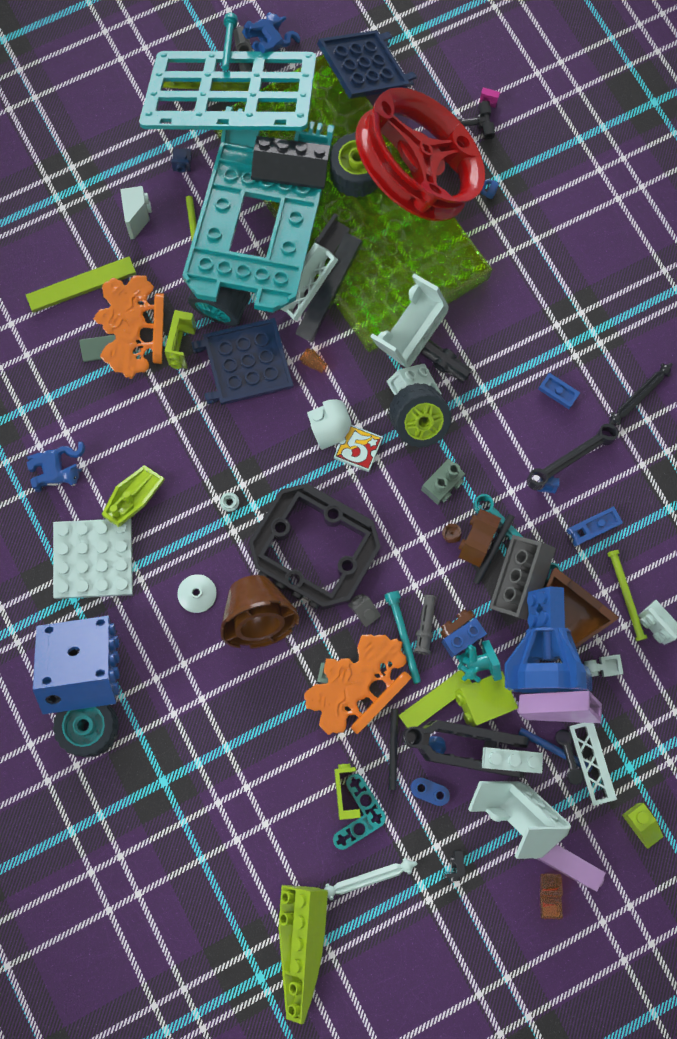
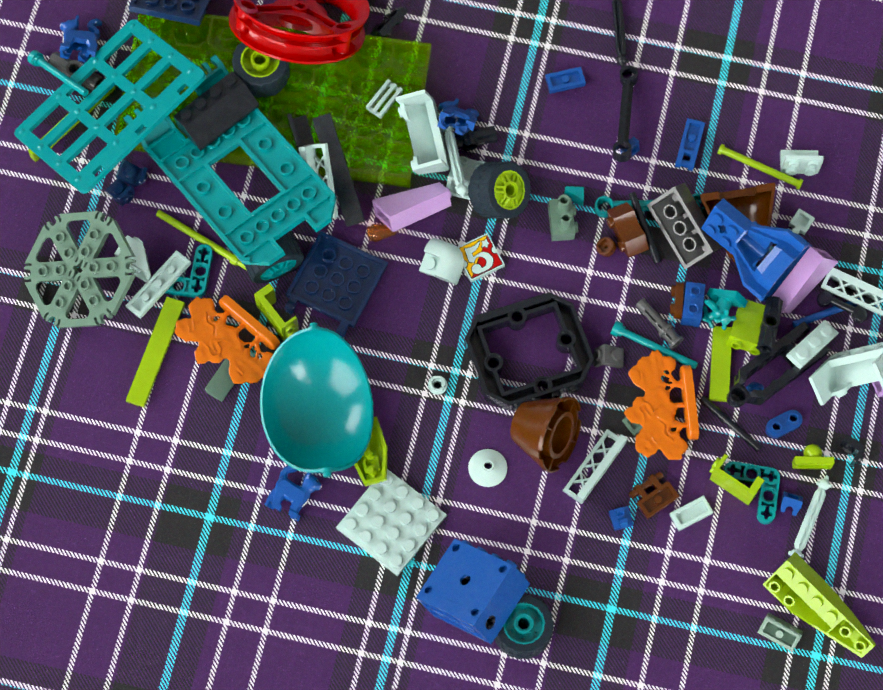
camera: 45 degrees left, 5 degrees down
(92, 179) = (92, 268): none -> sand green plate
(127, 427) = (316, 402): none -> teal windscreen
(131, 242) = (158, 284): none -> light aqua tile
(154, 263) = (190, 283): none -> teal beam
(200, 154) = (131, 173): none -> dark blue bracket
(241, 728) = (620, 518): none -> blue tile
(255, 932) = (780, 632): none -> sand green slope
(266, 679) = (601, 467): none -> light aqua fence
(278, 743) = (656, 500): none -> reddish brown plate
(292, 779) = (691, 513): none -> light aqua tile
(353, 364) = (411, 205): none -> lavender slope
(370, 852) = (791, 500): none -> blue tile
(415, 362) = (455, 161): none -> light aqua wheel
(420, 269) = (393, 86): none -> light aqua tile
(420, 839) = (812, 459): none -> lime tile
(450, 340) = (456, 117): none -> blue animal
(473, 475) = (575, 193): none -> teal slope
(474, 228) = (390, 20): none -> black plate
(487, 718) = (767, 332): none -> black piece

